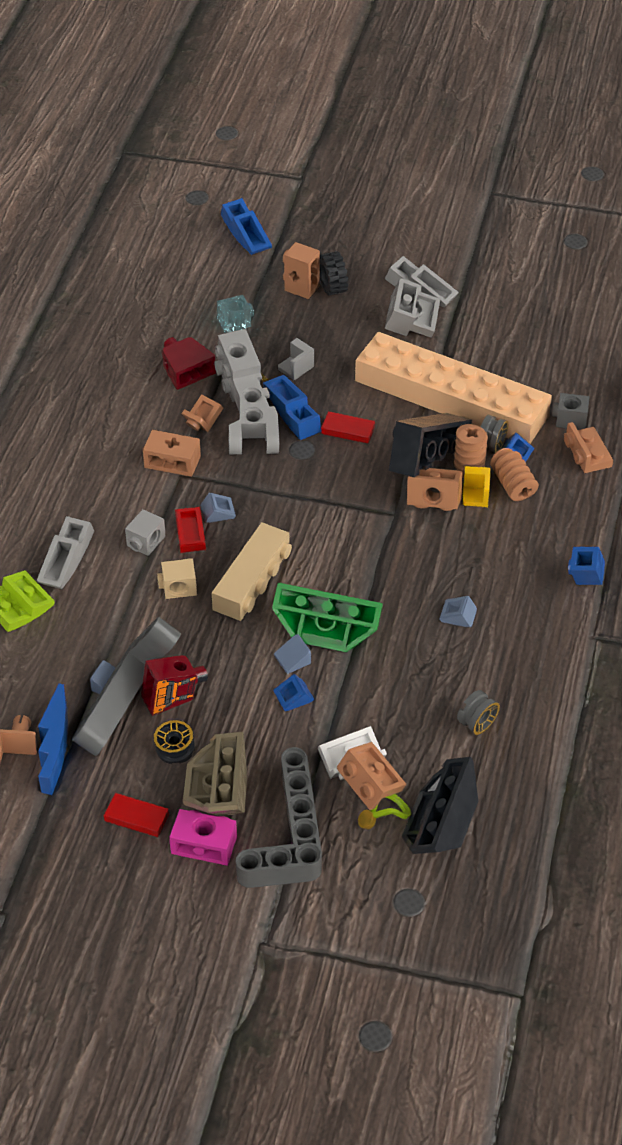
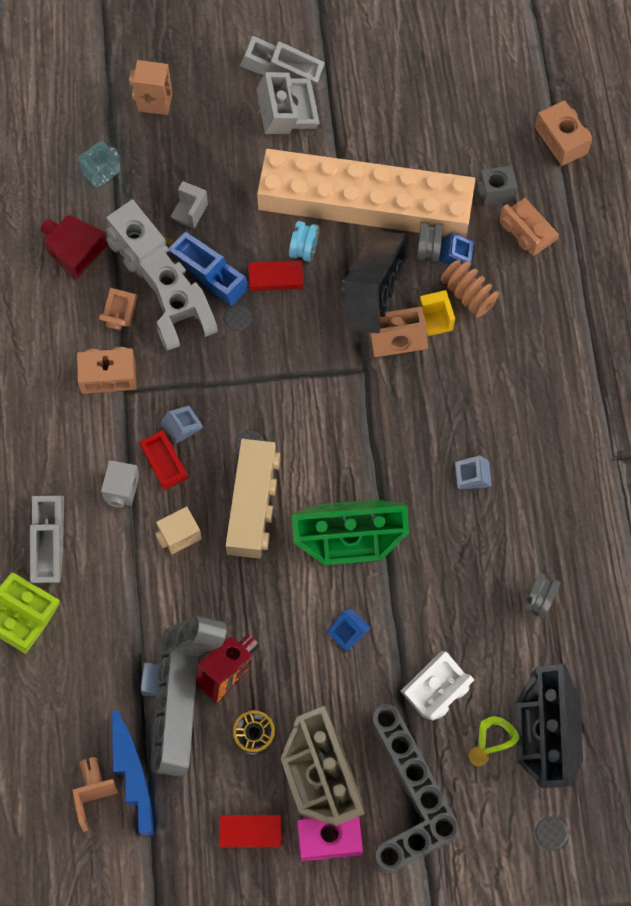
camera: 20 degrees left, 20 degrees up
(245, 226) = (64, 41): blue slope -> none
(293, 654) = (331, 584): sand blue slope -> none
(333, 273) = (187, 80): black tyre -> none
(370, 774) = (471, 714): nougat bracket -> none
(382, 406) = (304, 241): none -> medium azure wheel
(470, 447) = (417, 273): nougat piece -> none
(587, 566) = (583, 381): blue brick -> none

